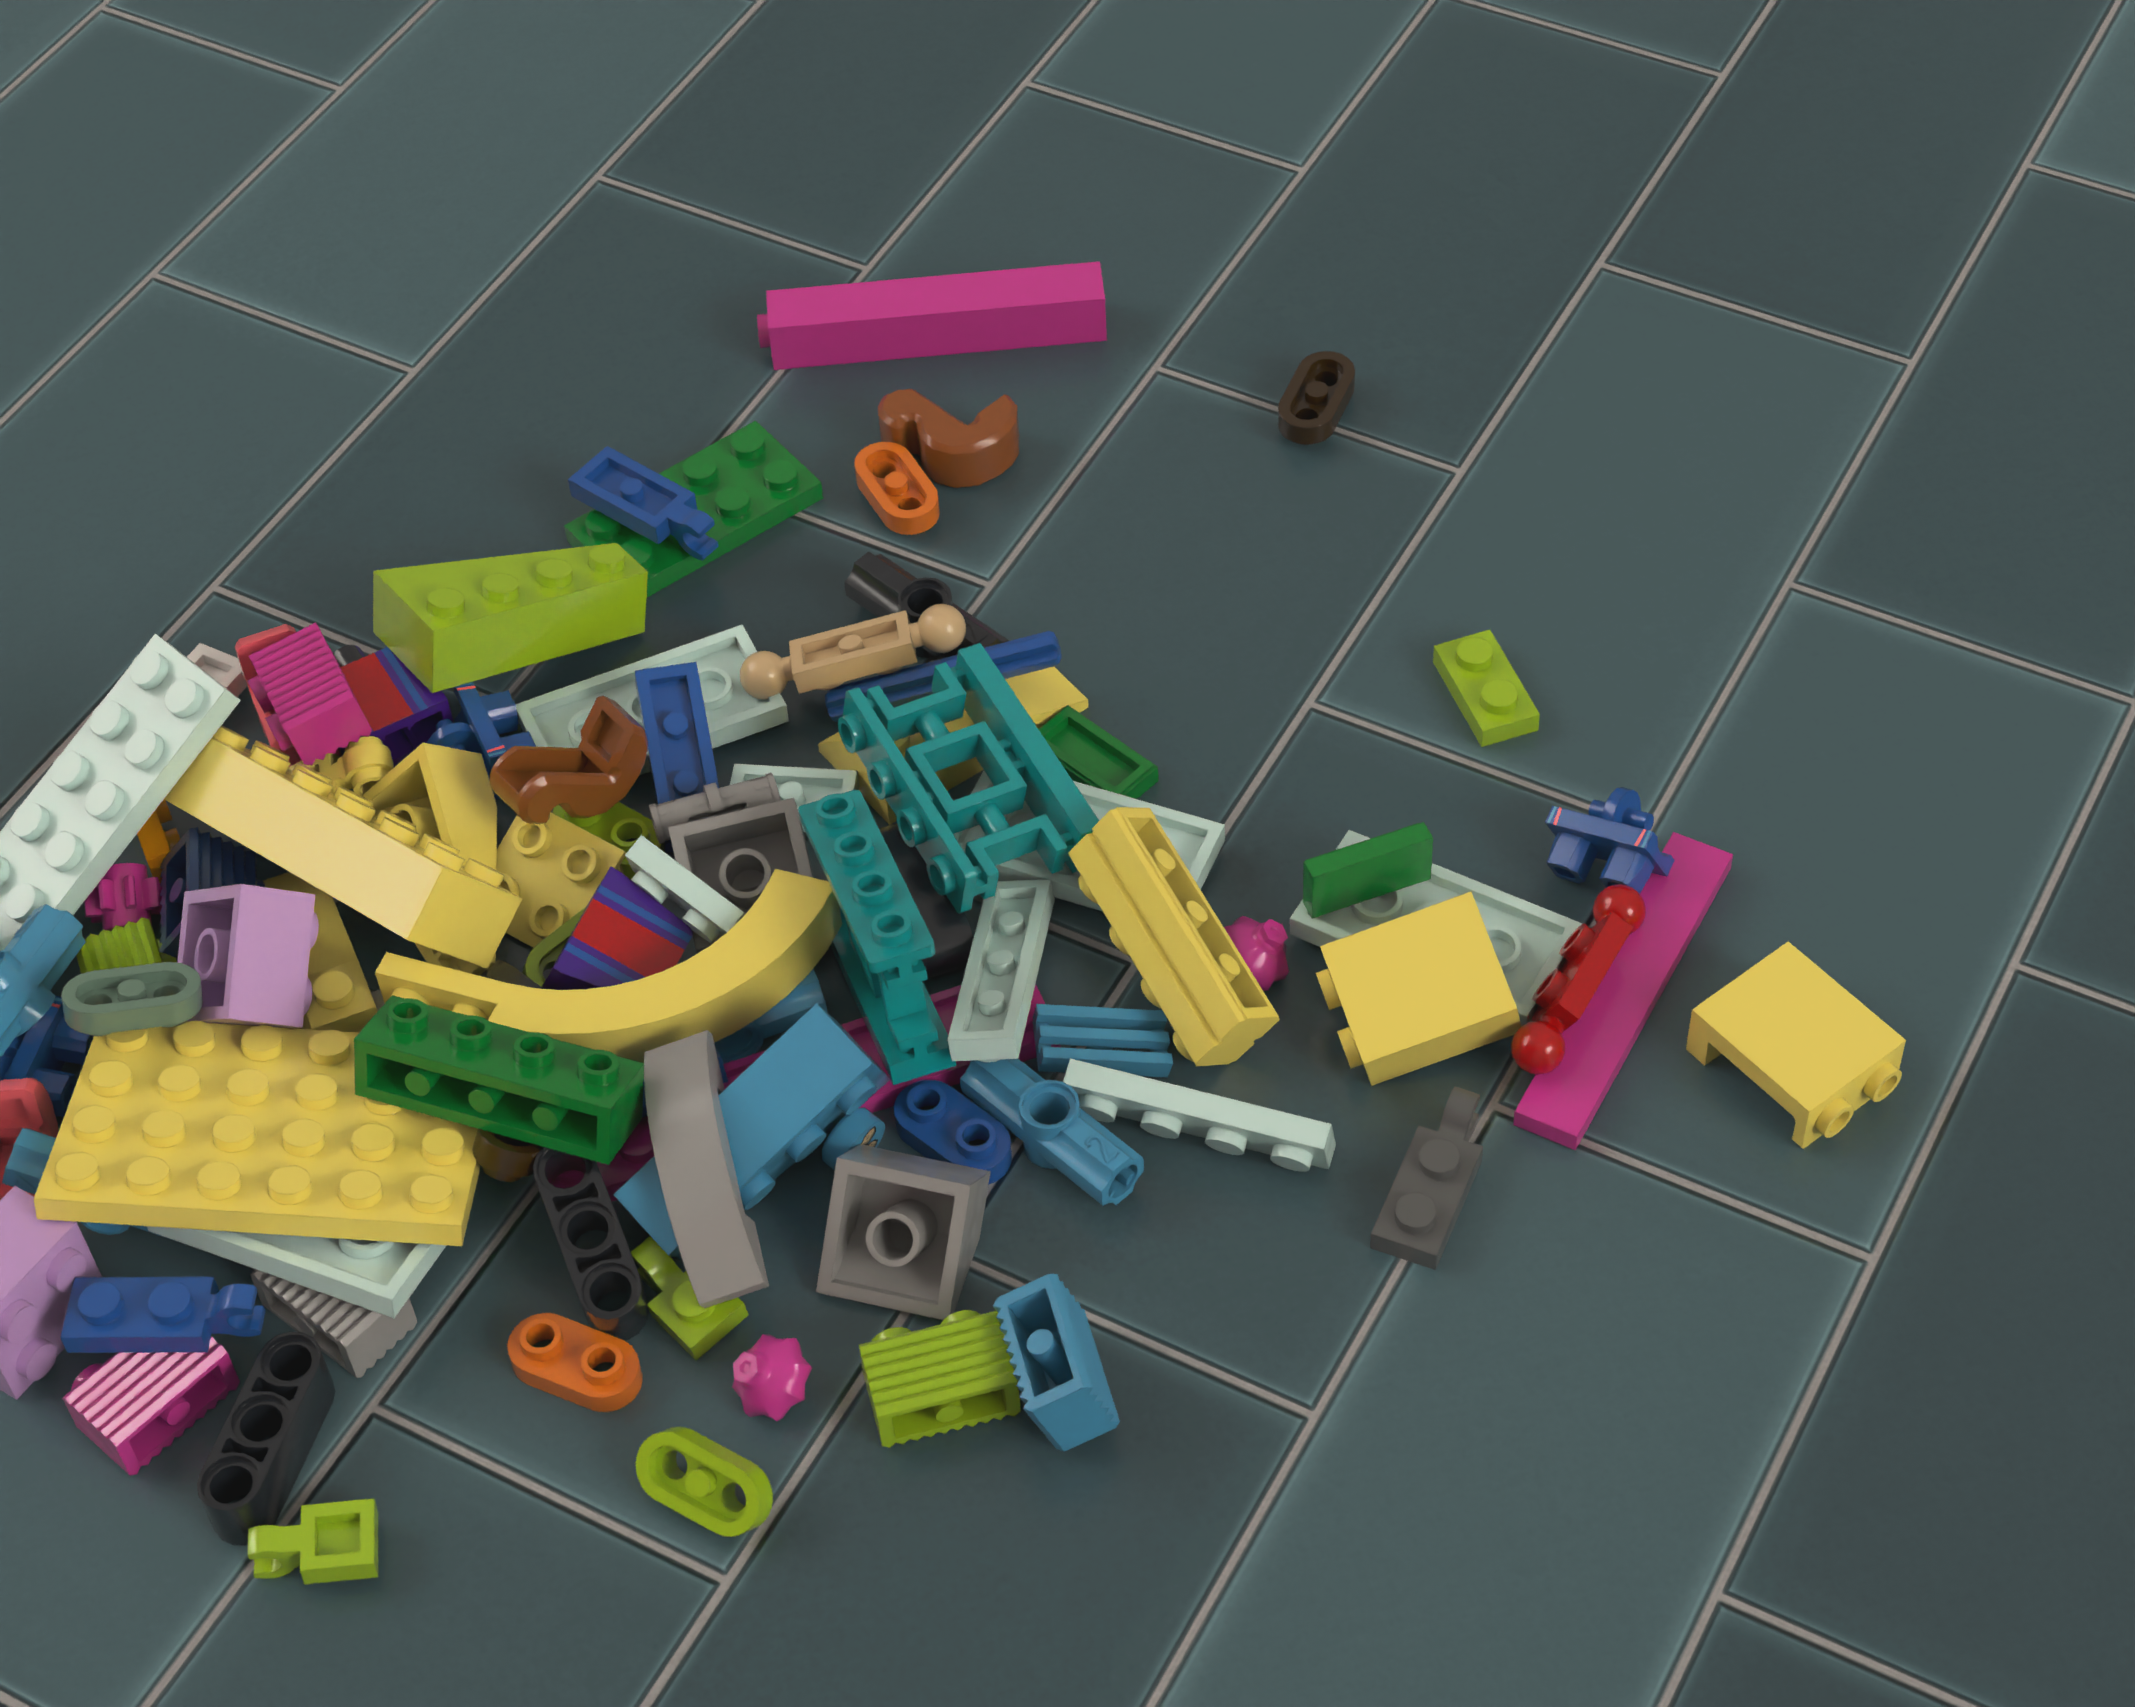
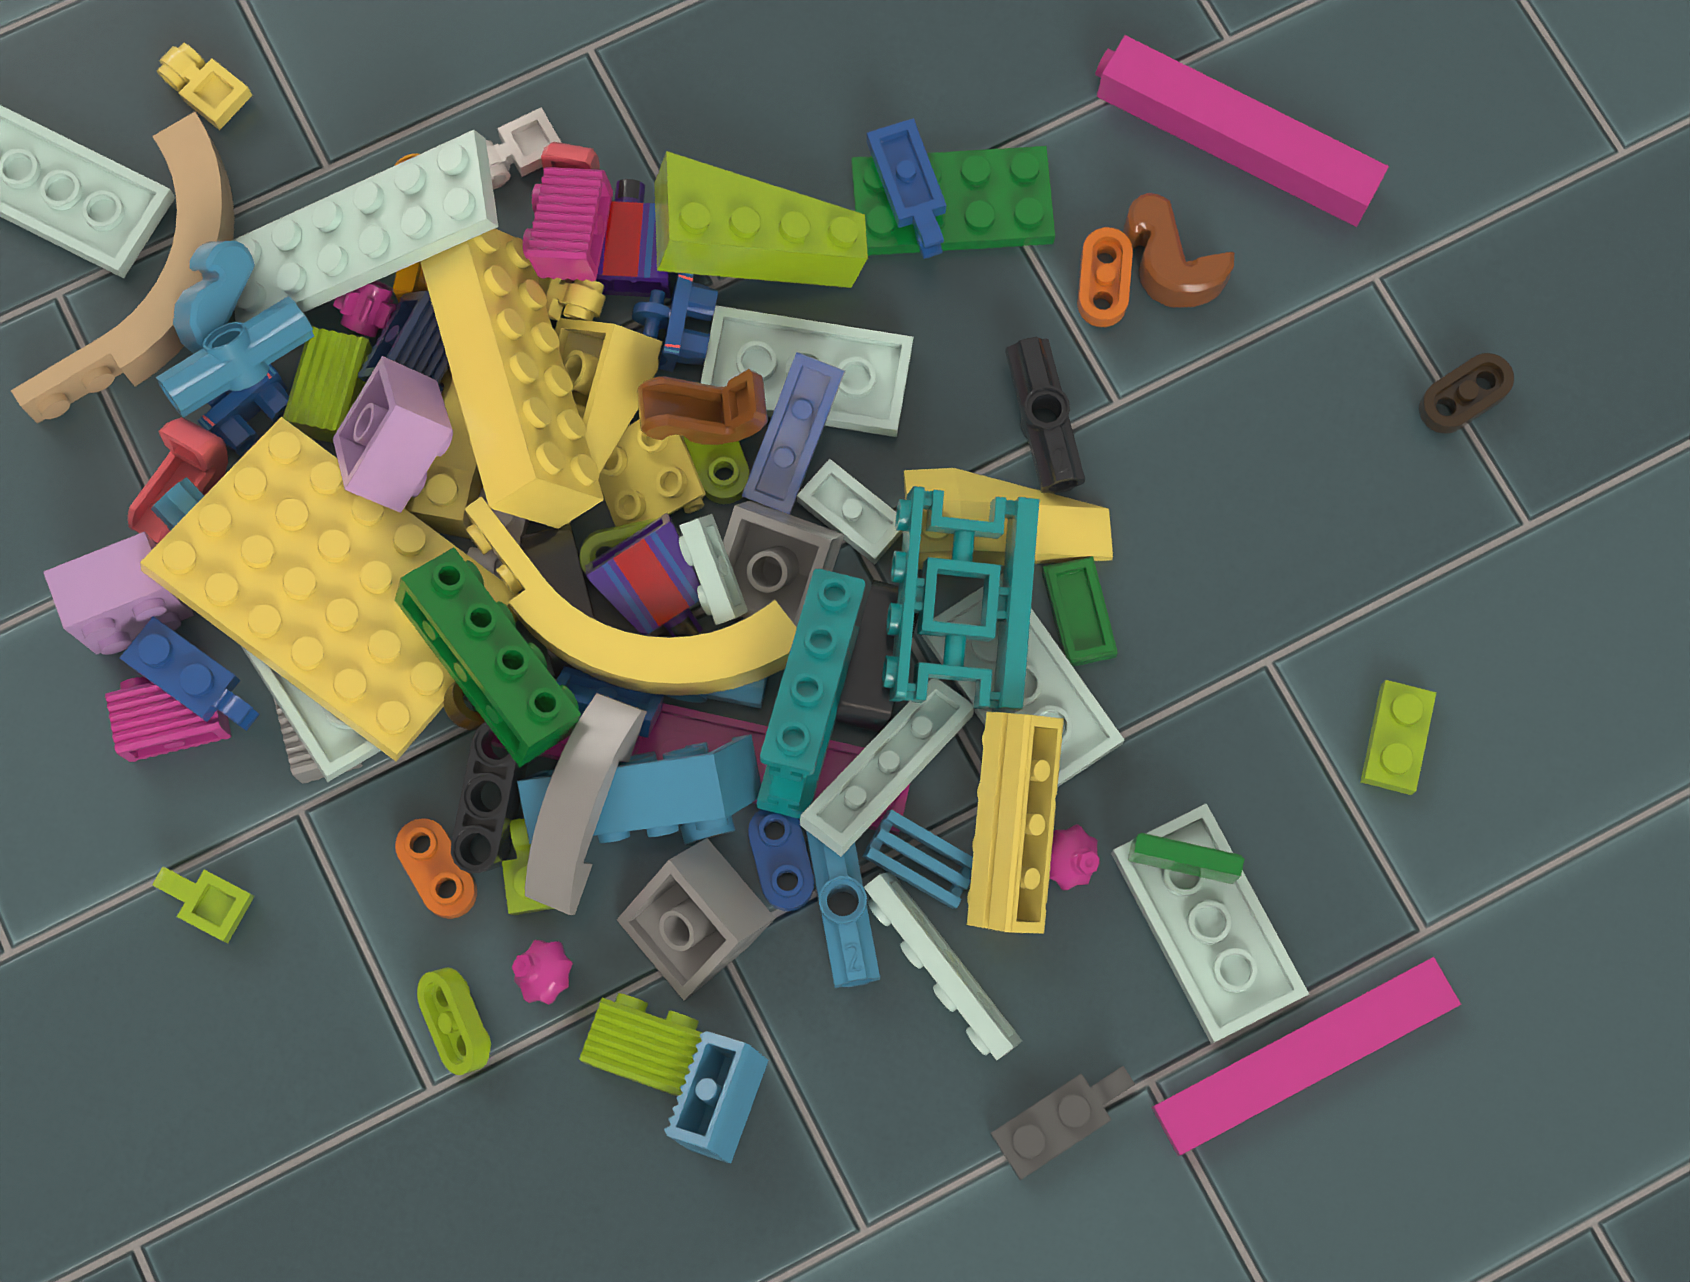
camera: 30 degrees right, 25 degrees up
(132, 998) = (299, 427): sand green plate -> none
(262, 1408) = (189, 803): black beam -> none
(712, 802) = (786, 496): light grey pin -> none
(853, 652) = (967, 421): tan plate -> none
(915, 682) = (1018, 482): blue axle -> none
(1418, 989) = (1150, 978): light yellow brick -> none
(1567, 992) = (1270, 1040): red plate -> none
(1611, 832) = (1360, 924): blue hips -> none
(1800, 1041) = (1384, 1193): light yellow panel -> none

